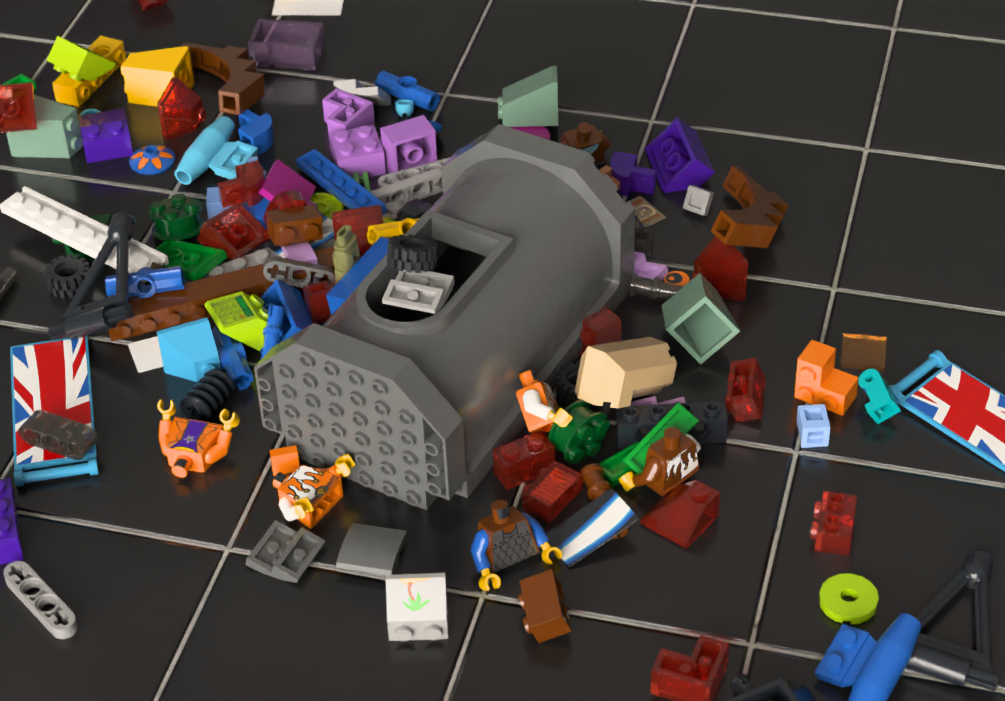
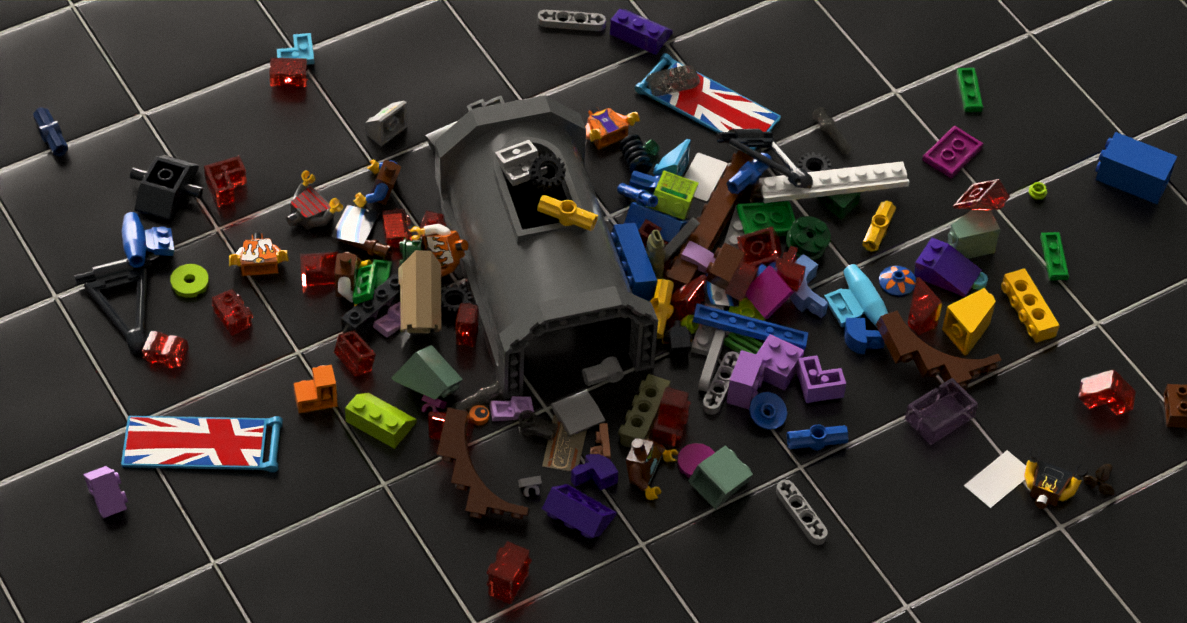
camera: 130 degrees right, 10 degrees up
(78, 60) = (1026, 286): lime slope -> none
(99, 193) = (879, 226): none -> yellow piece
(178, 394) = (651, 147): none -> clear green plate
(372, 94) = (834, 403): light grey slope -> none
(404, 106) = (803, 423): medium azure hinge -> none
(442, 213) = (567, 213): none -> yellow piece
(486, 80) = (804, 510): none -> light grey beam
(544, 606) = (329, 164): reddish brown brick -> none
(621, 573) = (310, 207): none -> dark grey torso
(742, 561) = (258, 256): none -> torso
(778, 328) = (379, 419): none -> lime slope
(804, 140) = (508, 572): none -> clear red brick
(813, 425) = (299, 362): light blue brick -> none
(863, 352) = (321, 445): clear orange piece -> none
(882, 401) = (278, 404): leg -> none
(952, 531) = (165, 349): none -> clear red brick

